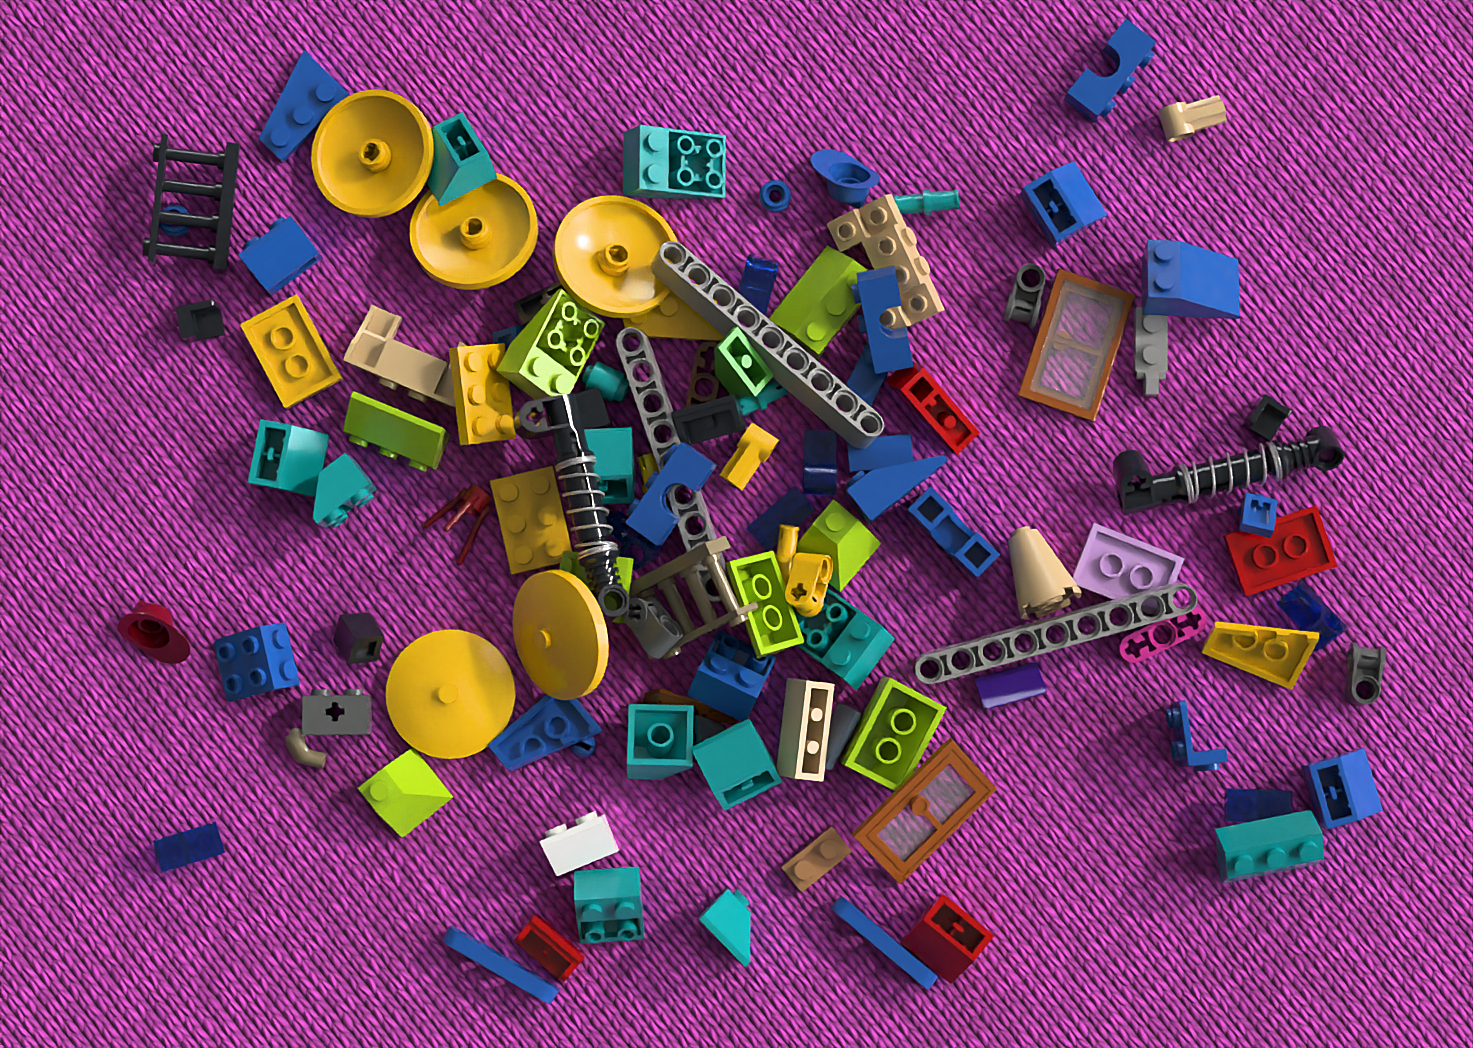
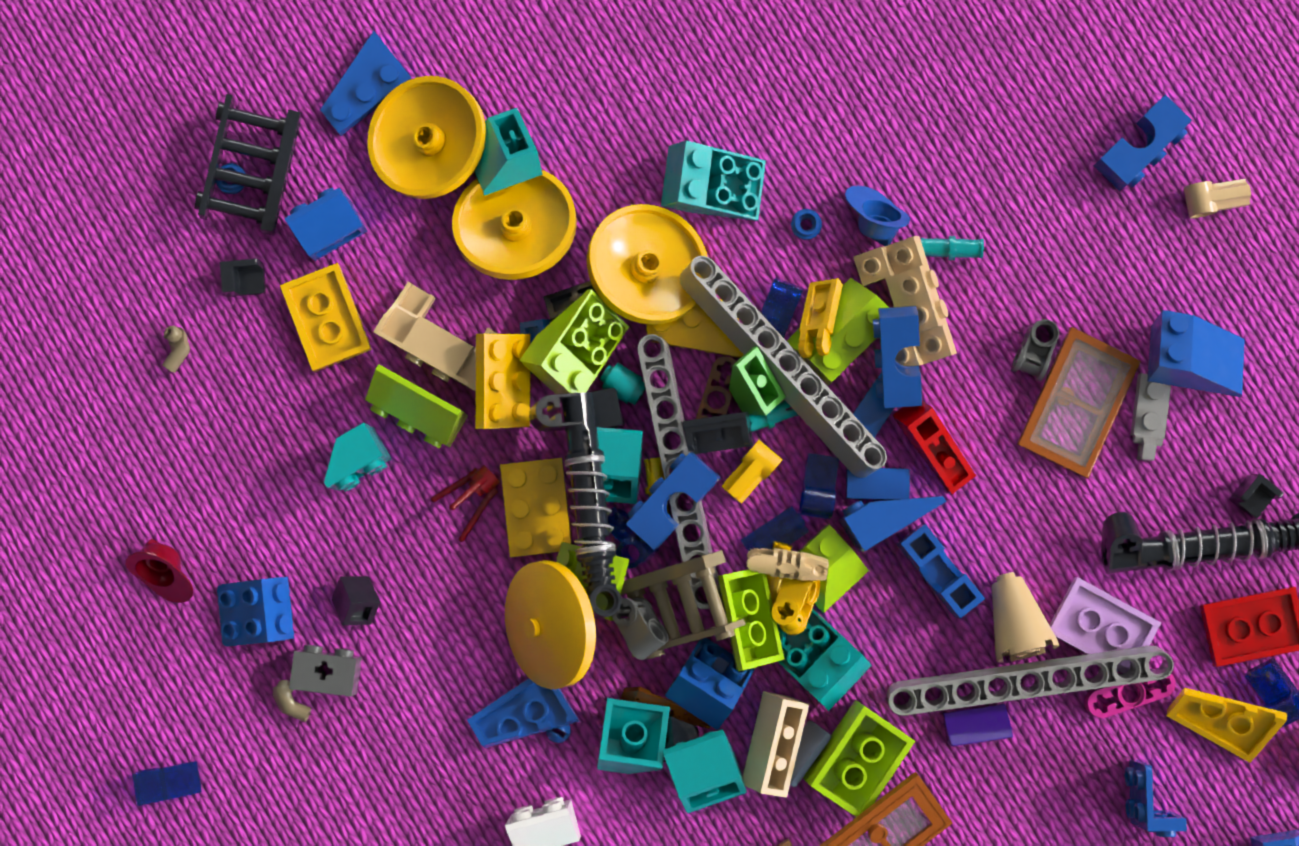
camera: 10 degrees right, 0 degrees up
(143, 401) = (179, 347): none -> dark tan arm
(288, 458) = (309, 419): teal slope -> none
(405, 792) = (382, 755): lime slope -> none
(450, 694) = (437, 665): yellow dish -> none
(796, 544) = (787, 564): none -> tan hinge
(798, 289) = (819, 317): none -> yellow hinge
(1062, 203) = (1082, 265): blue slope -> none
(1257, 514) = (1238, 589): blue bracket -> none

